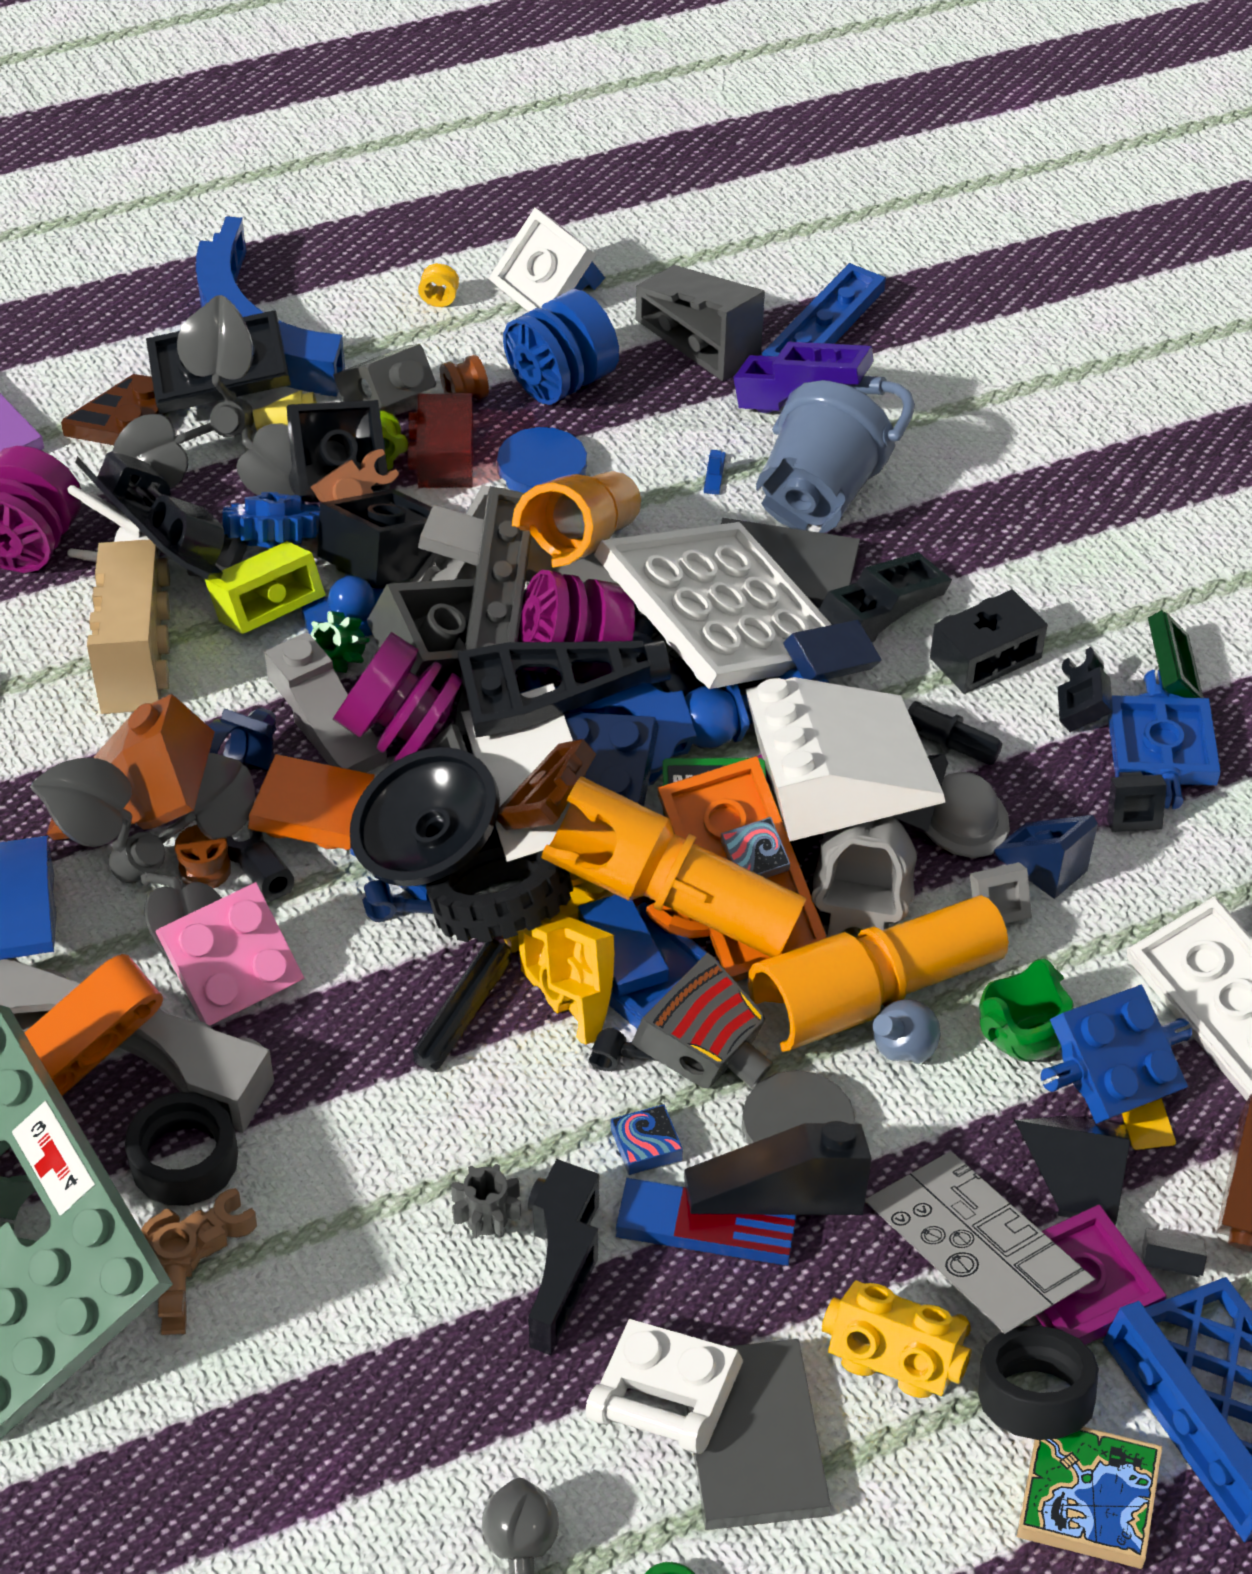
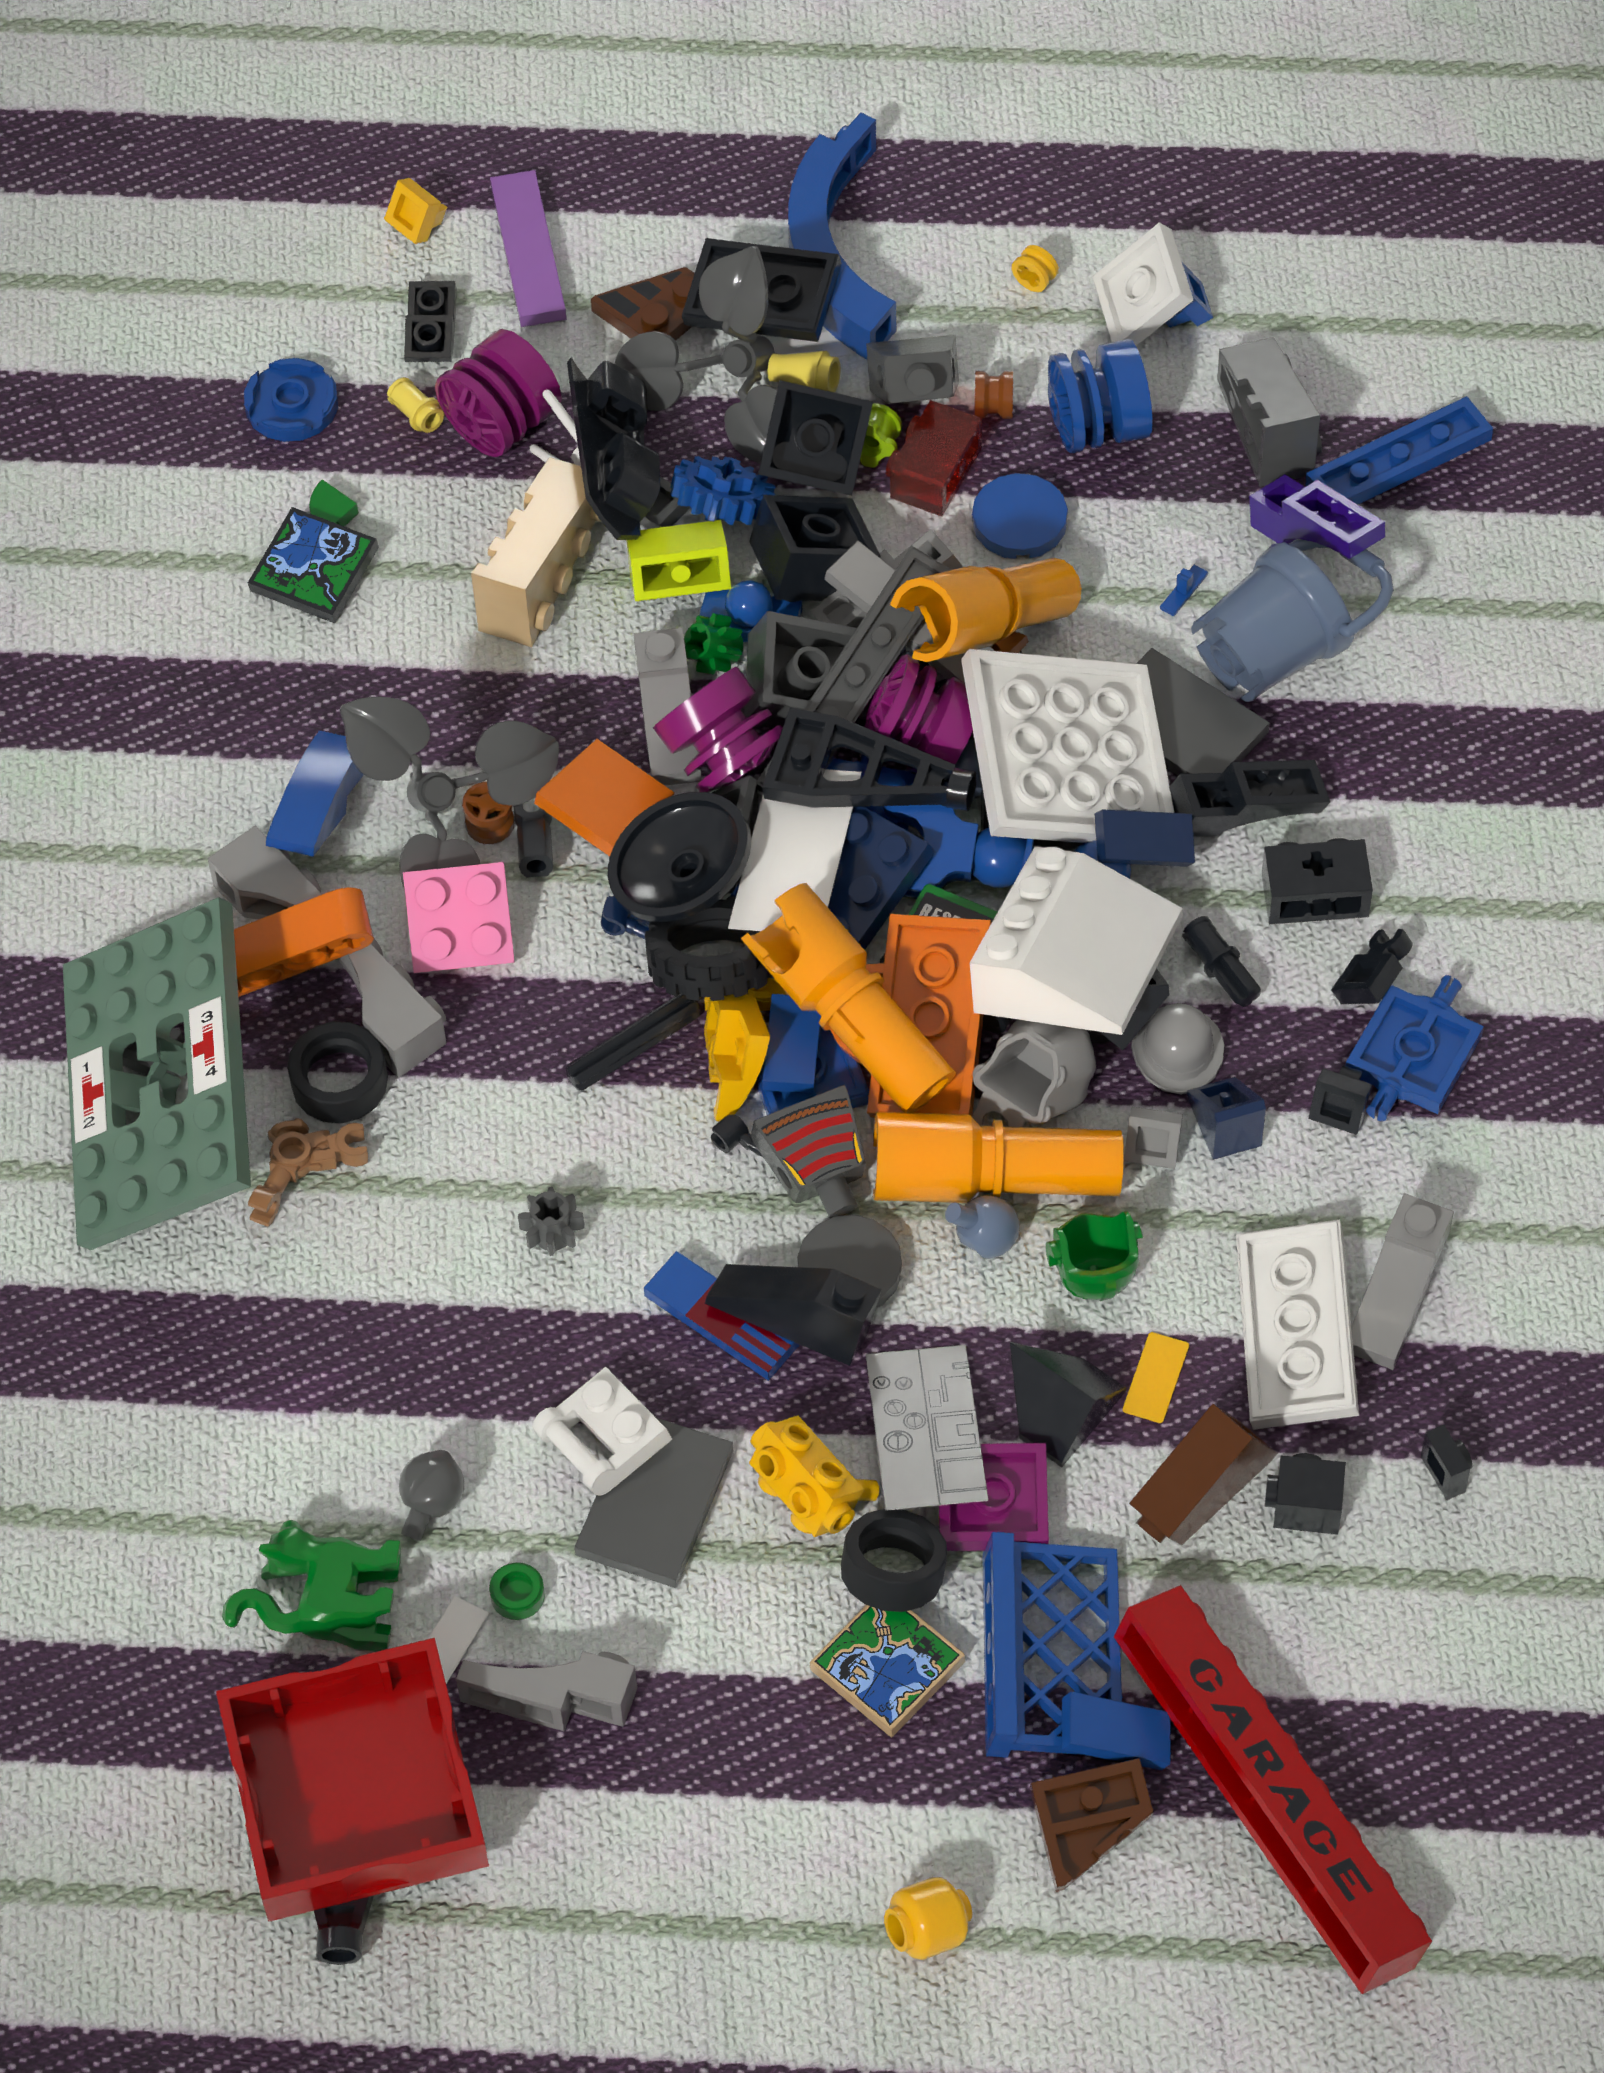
camera: 30 degrees right, 10 degrees up
(163, 757) = (467, 719): dark orange wedge -> none
(250, 736) = (582, 715): dark blue piece -> none
(350, 481) = (809, 479): nougat plate -> none
(546, 790) = (806, 865): reddish brown wing -> none
(562, 1217) = (608, 1257): black slope -> none
(646, 1139) = (715, 1225): tile -> none
(756, 848) = (941, 1008): tile -> none
(1117, 1053) = (1147, 1323): blue plate -> none
(1174, 656) = (1483, 973): dark green tile -> none
(1174, 1252) = (1083, 1509): black tile -> none

